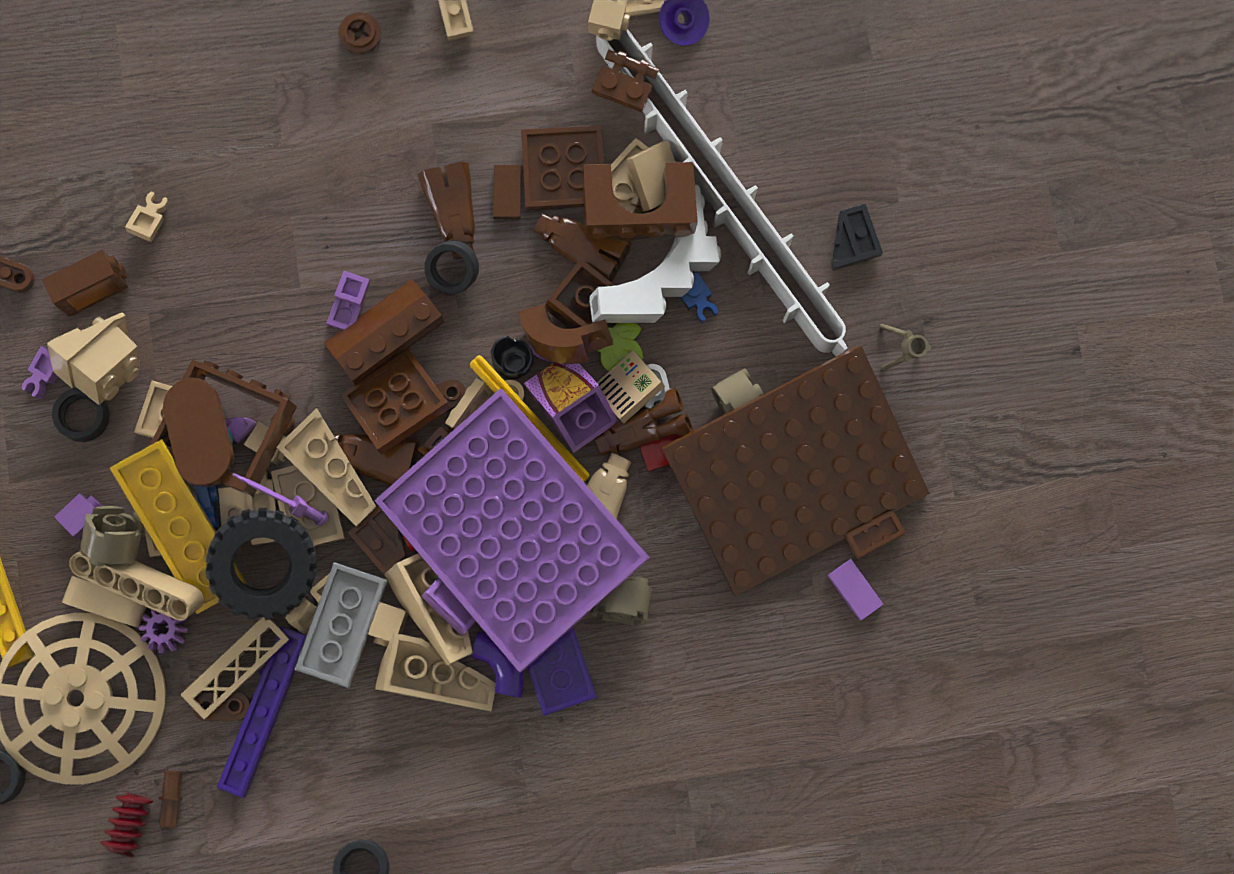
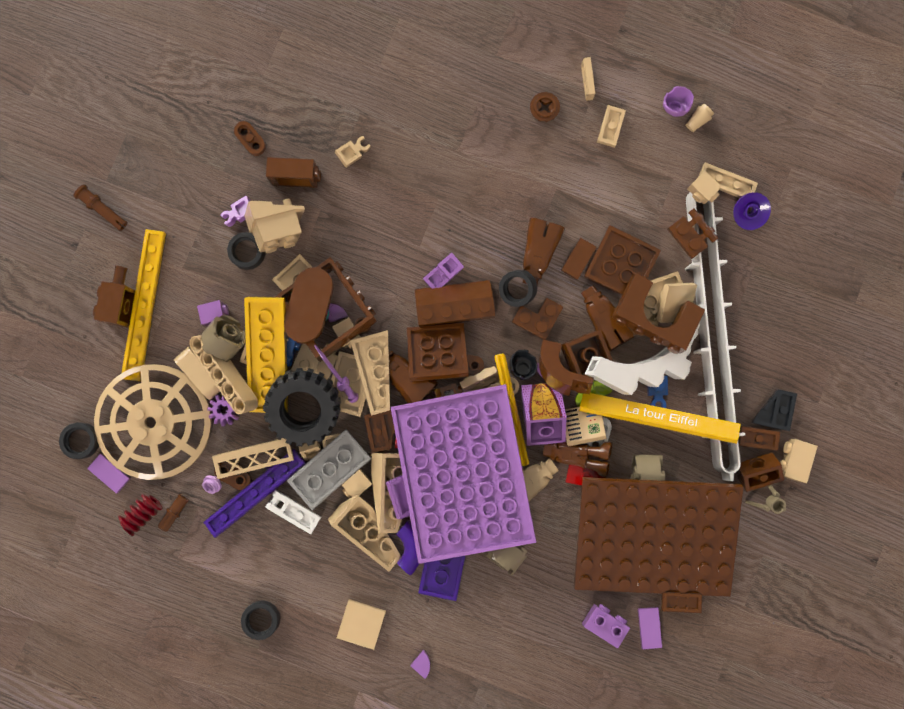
camera: 35 degrees right, 5 degrees up
(57, 797) = (108, 473): none -> medium lavender tile
(200, 732) = (211, 484): none -> lavender plate
(327, 706) = (293, 512): none -> white plate
(493, 797) = (361, 624): none -> tan tile
(502, 299) = (540, 323): none -> reddish brown plate
(599, 802) = (421, 664): none -> medium lavender tile
(714, 323) = (660, 417): none -> yellow tile
(799, 617) = (606, 625): none -> medium lavender brick
(852, 283) = (759, 438): none -> reddish brown plate
(875, 321) = (760, 472): none -> reddish brown brick
(912, 283) = (798, 460): none -> tan brick

